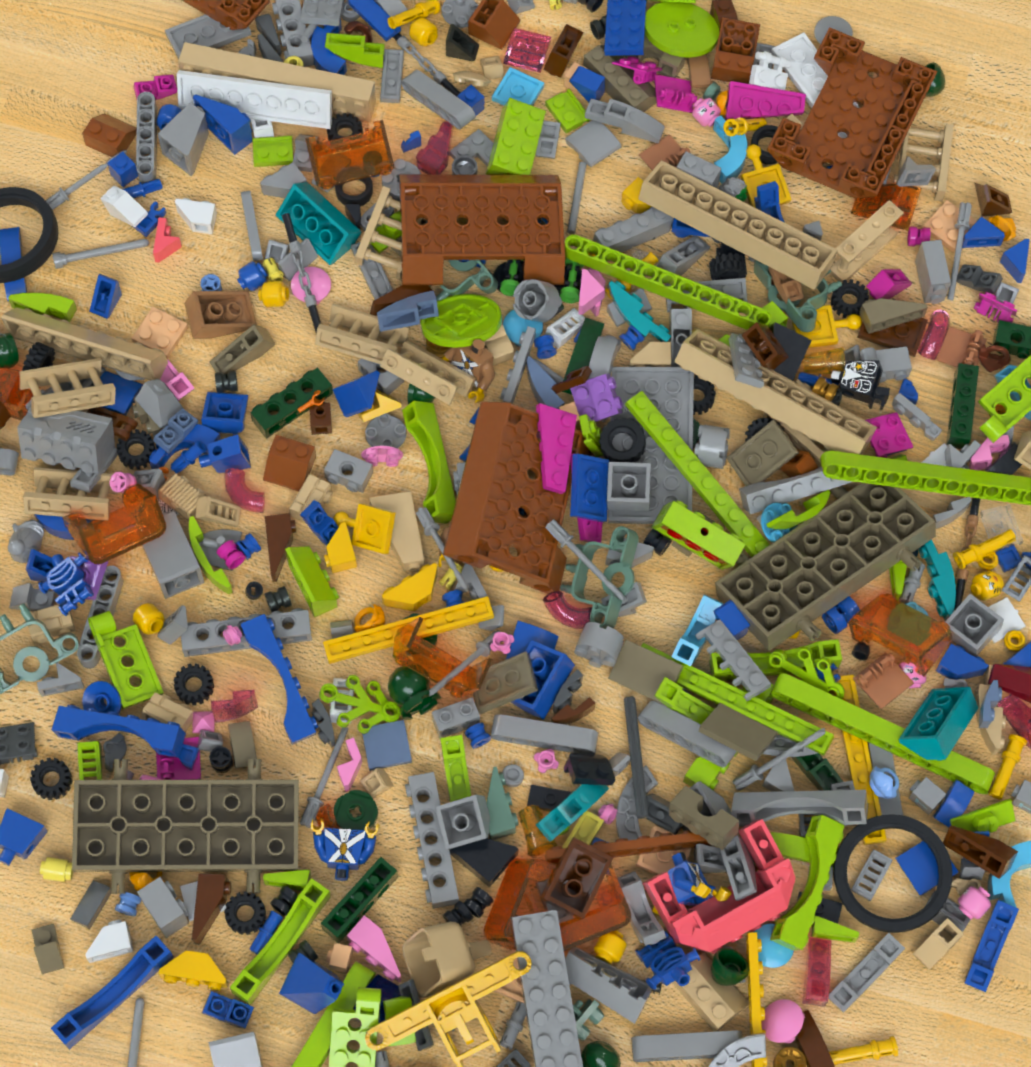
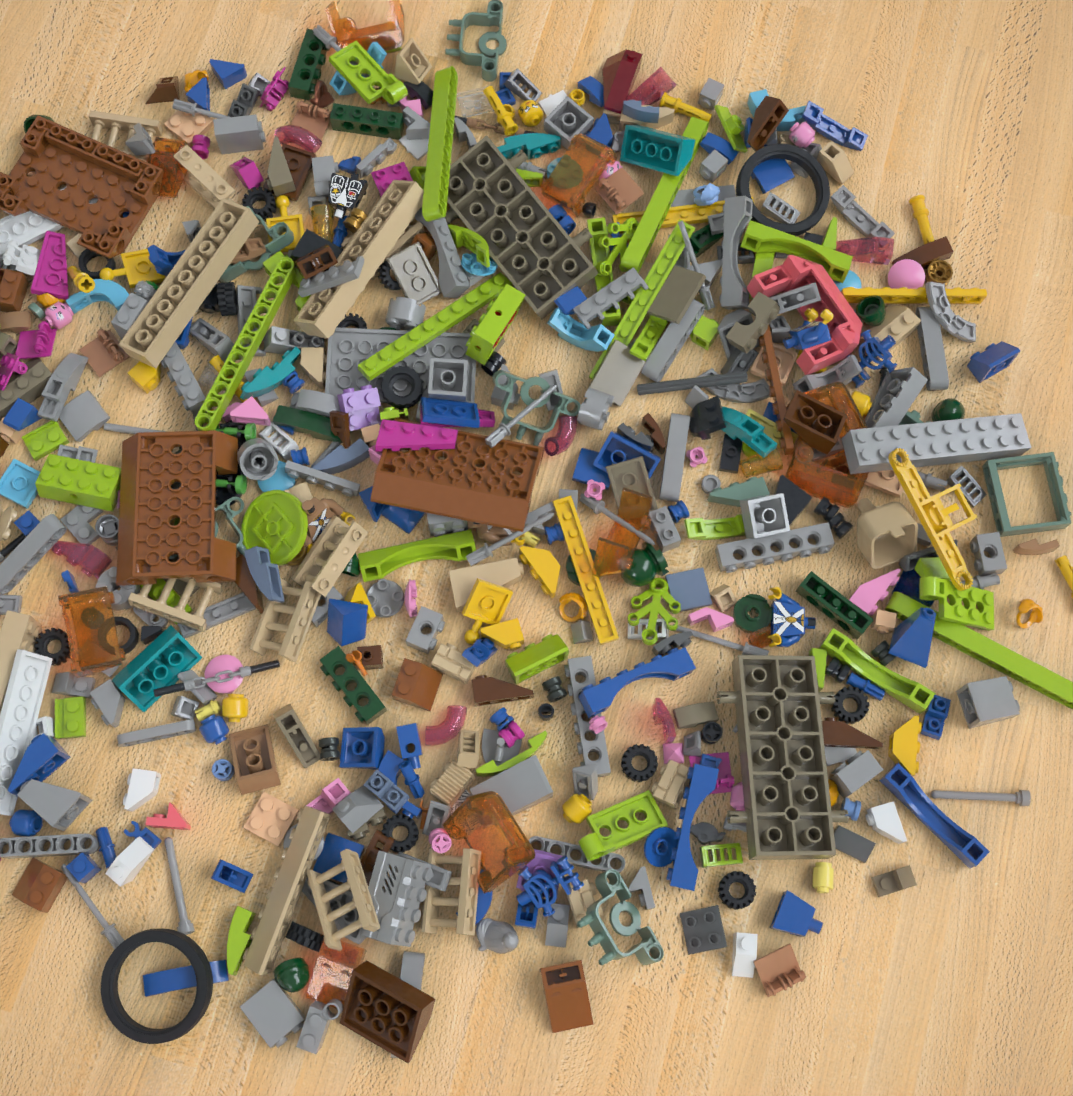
camera: 90 degrees left, 5 degrees up
(607, 813) = (741, 406): bright pink plate -> none

